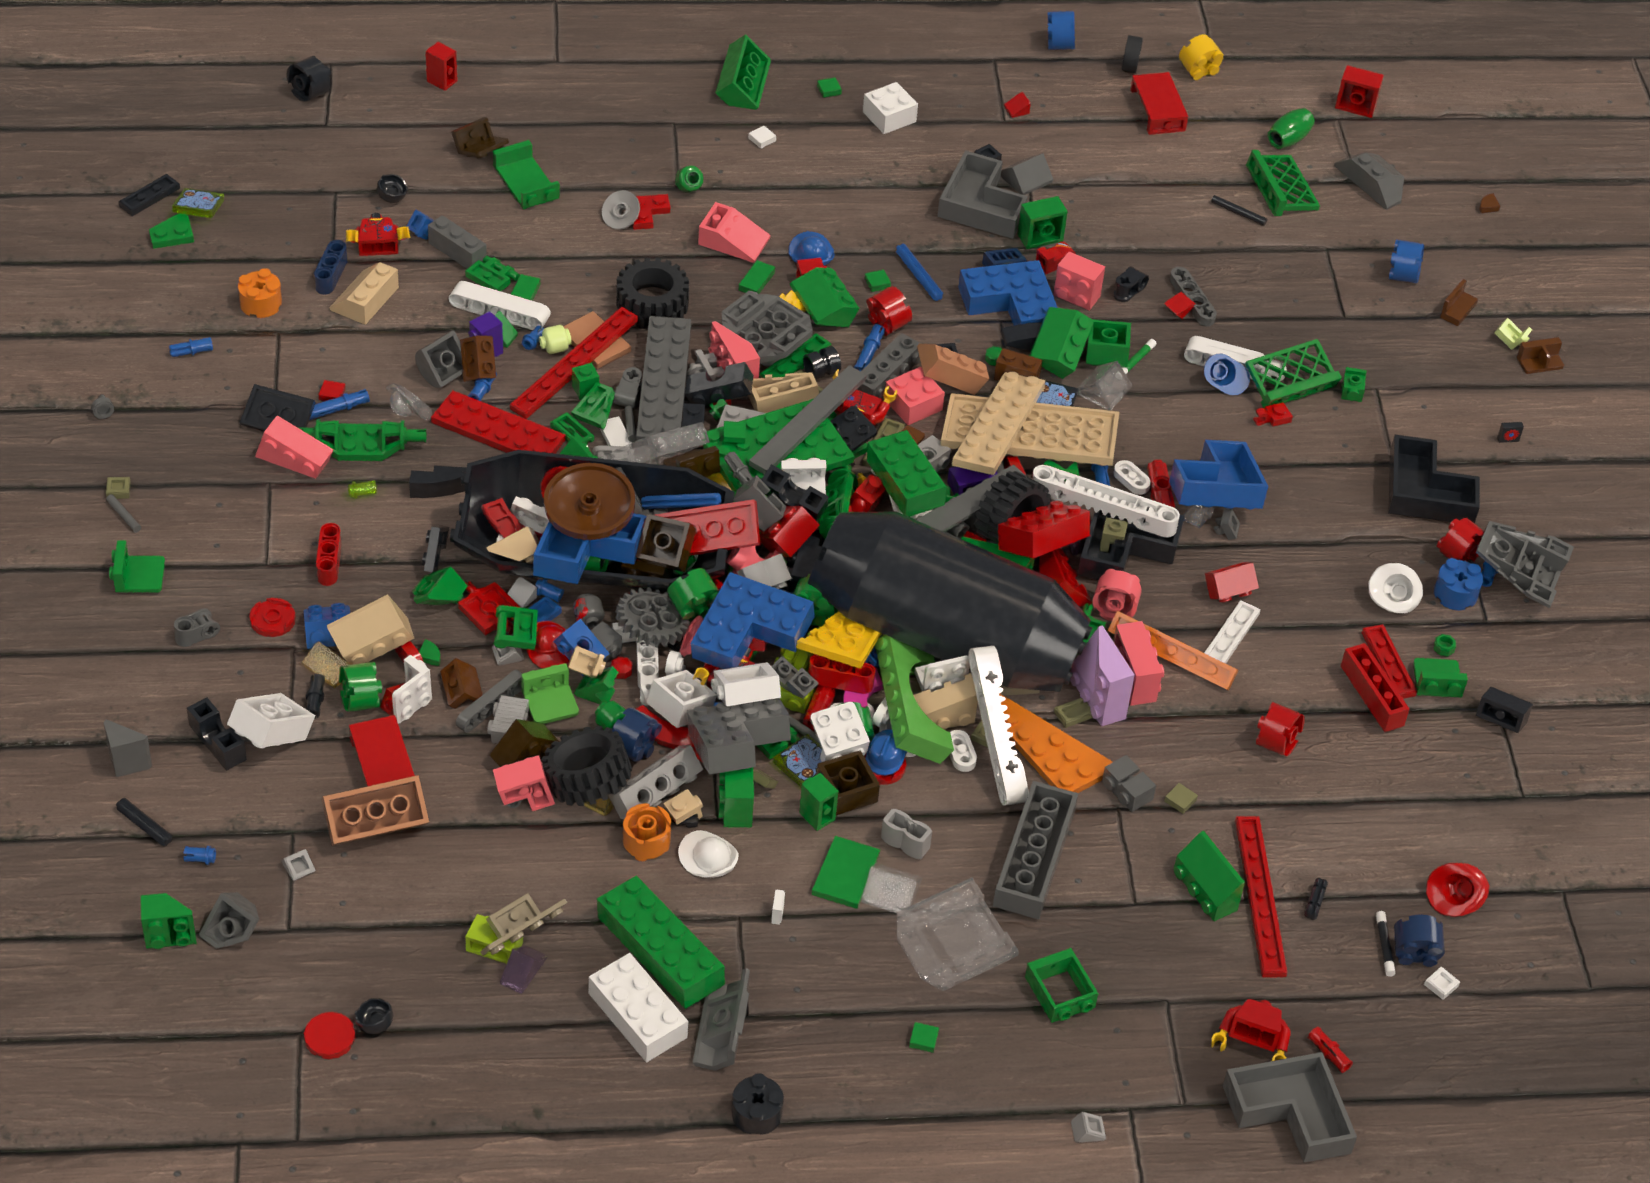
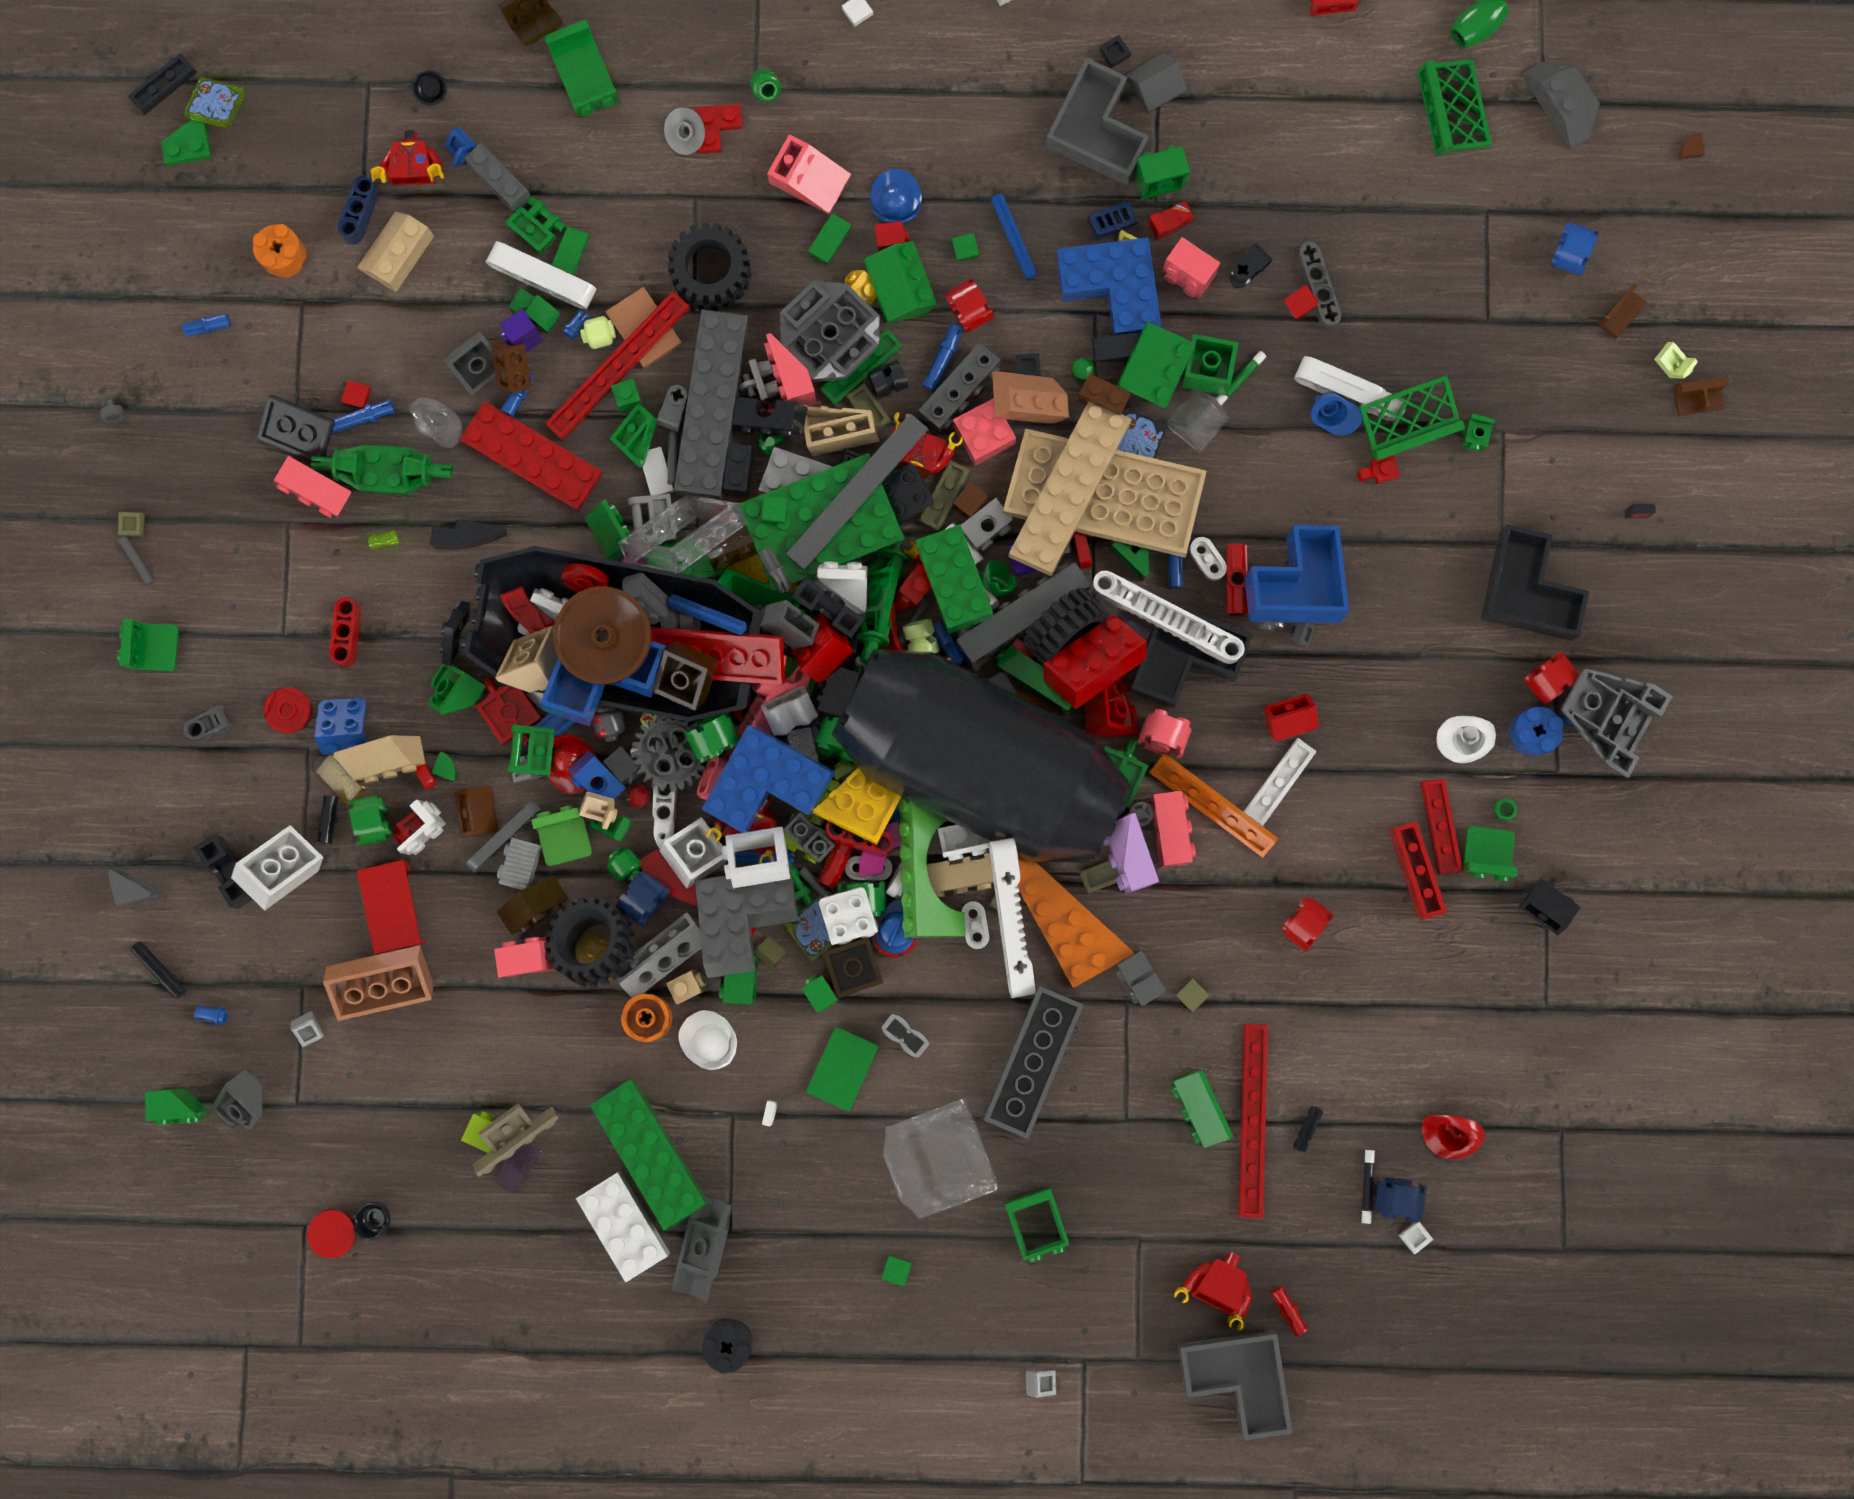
camera: 10 degrees right, 35 degrees up
(562, 427) = (621, 478): green tile -> none
(674, 663) = (690, 809): white plate -> none
(890, 888) = (885, 1090): clear slope -> none
(1112, 530) = (1173, 651): olive bracket -> none
(1239, 210) = (1395, 147): black bar -> none

